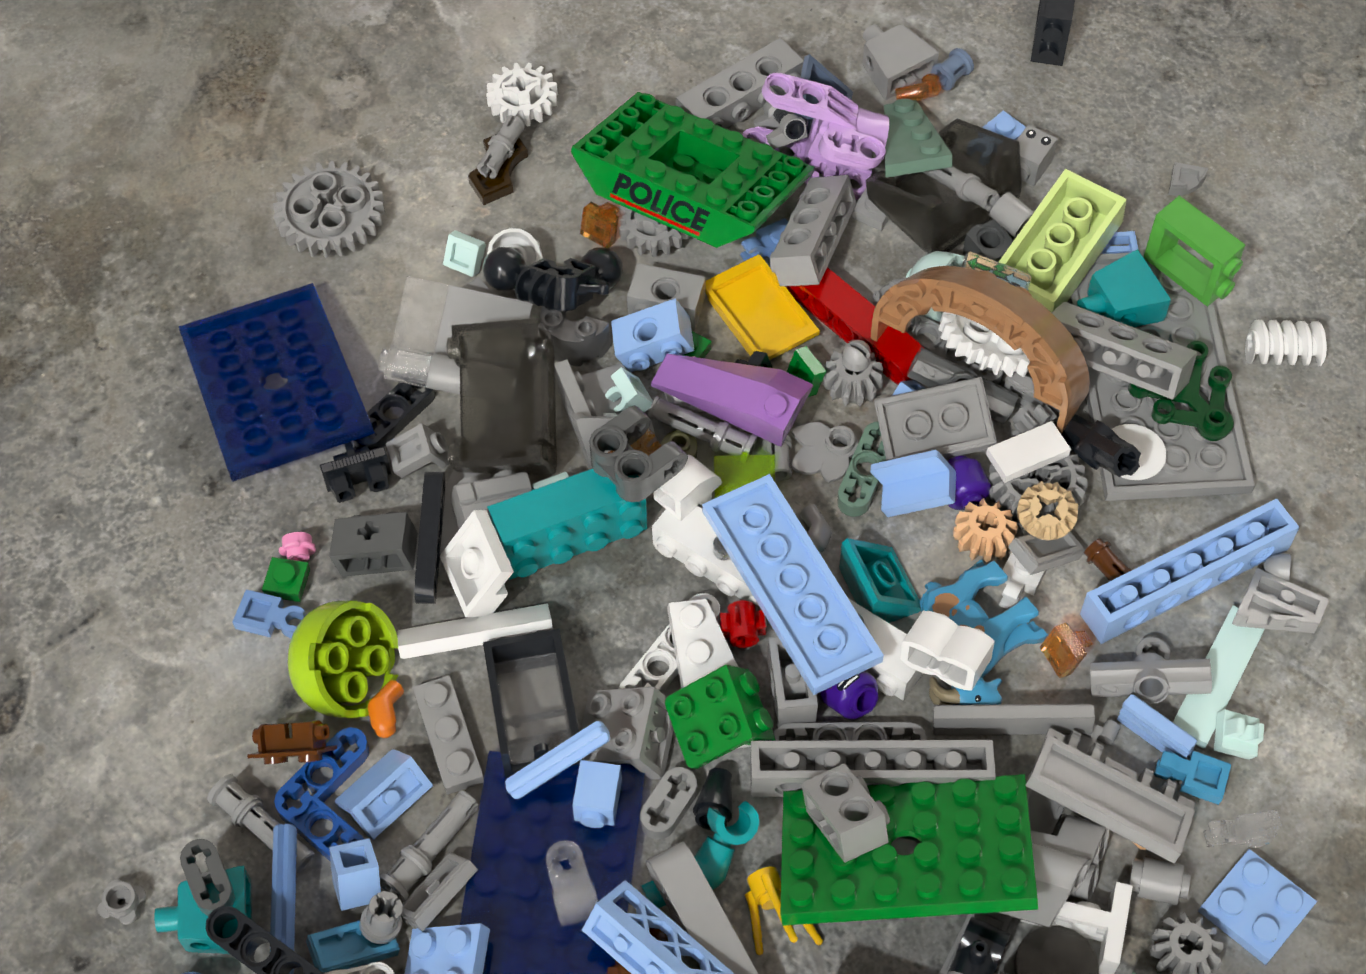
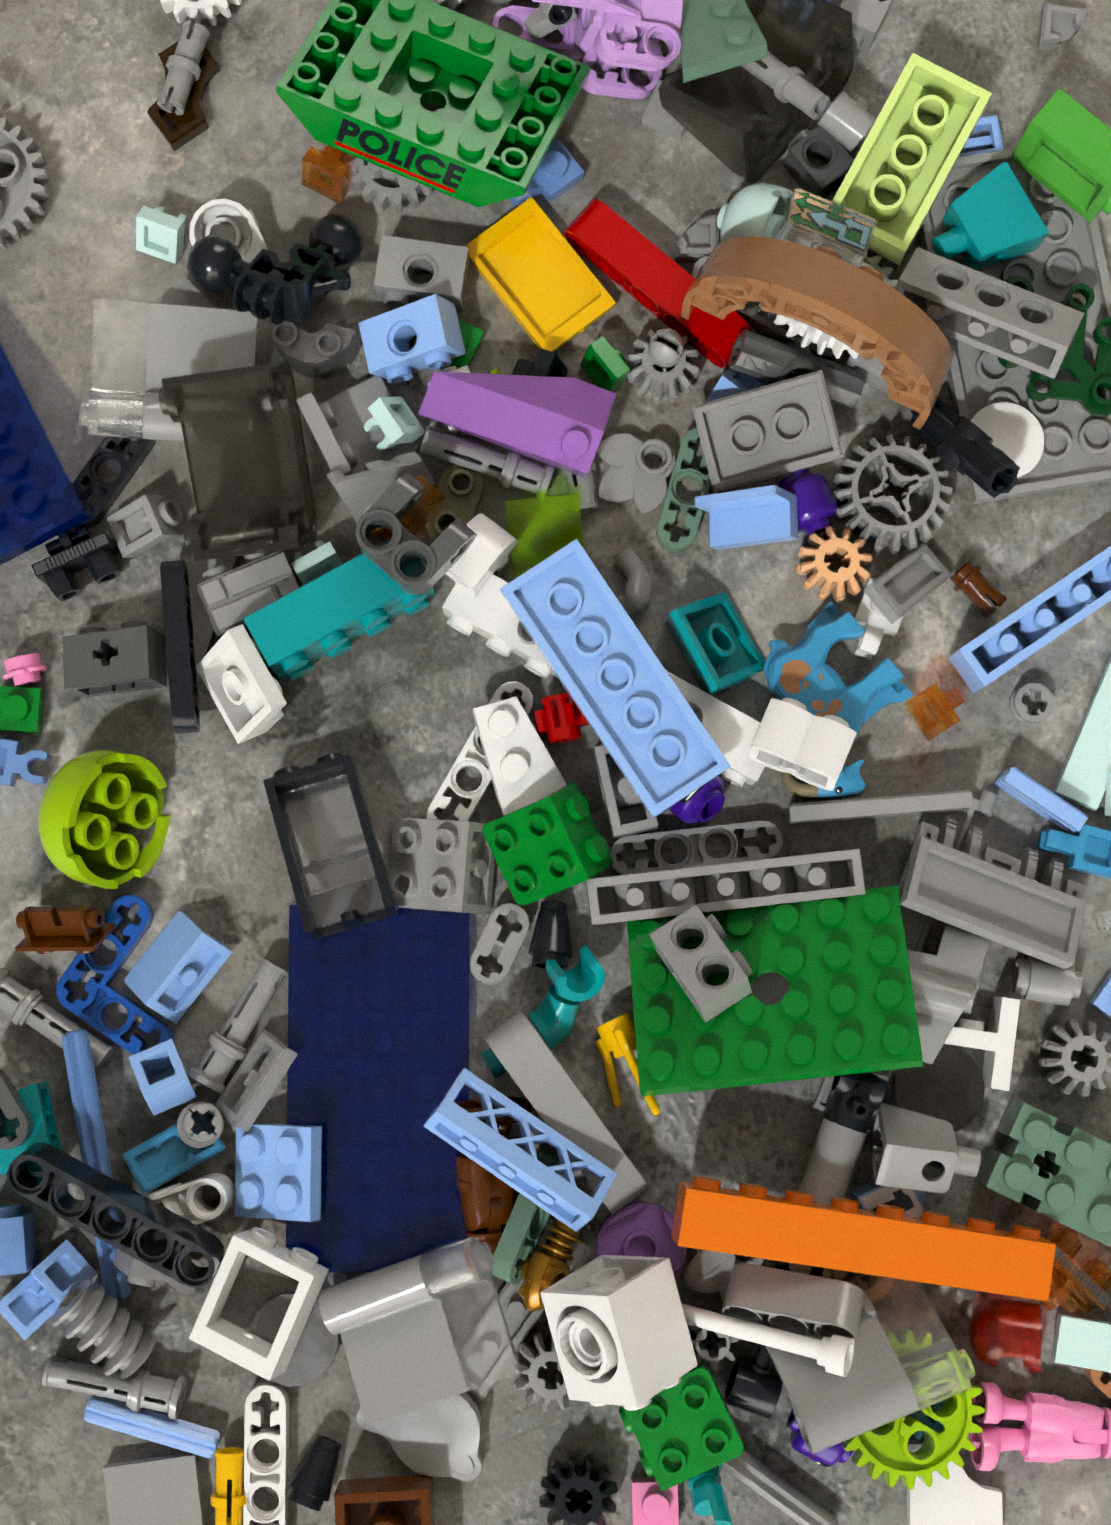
camera: 10 degrees left, 25 degrees up
(382, 710) = (159, 868): orange arm -> none
(448, 735) = (239, 886): light grey plate -> none
(472, 631) = (256, 757): white tile -> none
(557, 759) = (370, 927): light blue axle -> none
(572, 888) = (408, 1077): clear piece -> none
(597, 793) = (419, 959): light blue brick -> none
(813, 231) = (597, 165): light grey brick -> none
(1028, 451) = (882, 462): white tile -> none
(1032, 417) = (883, 416): light grey gear -> none
(1047, 526) = (887, 541): tan gear -> none
(1151, 678) = (1033, 740): light grey piece -> none

